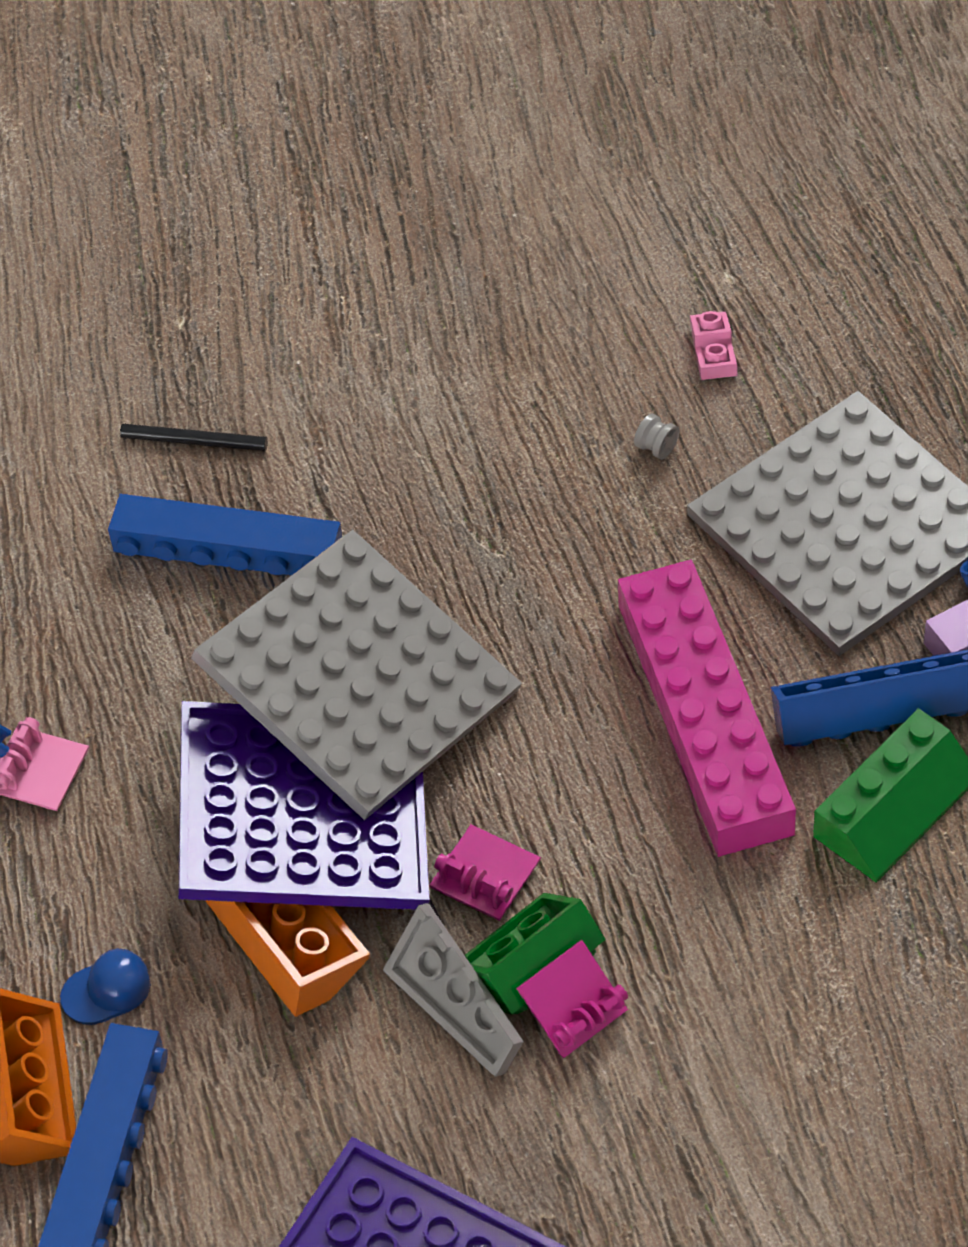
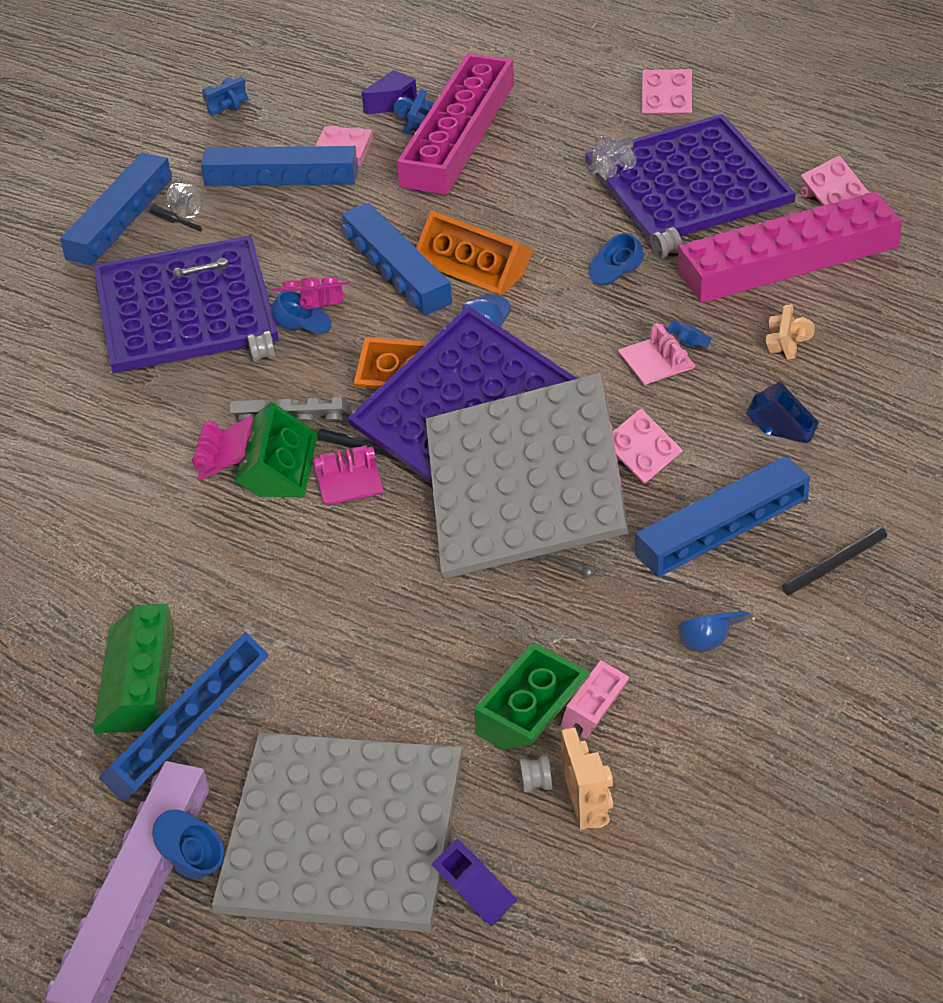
camera: 135 degrees right, 10 degrees down
(38, 596) = (782, 414): none -> clear blue slope
(176, 669) = (644, 446): none -> bright pink hinge
(249, 1168) = (316, 293): none -> dark pink hinge
(300, 1147) = (292, 316): none -> blue cap
(374, 439) = (709, 631): none -> blue cap
(389, 1133) = (261, 346): none -> light grey wheel
(542, 457) = (594, 698): none -> bright pink hinge
(597, 482) = (527, 698): none -> green slope
(638, 383) = (586, 781): none -> light nougat plate
(706, 708) = (313, 632): dark pink brick -> none
(713, 345) = (580, 884): bright pink slope -> none
(798, 390) = (474, 882): none -> dark purple slope

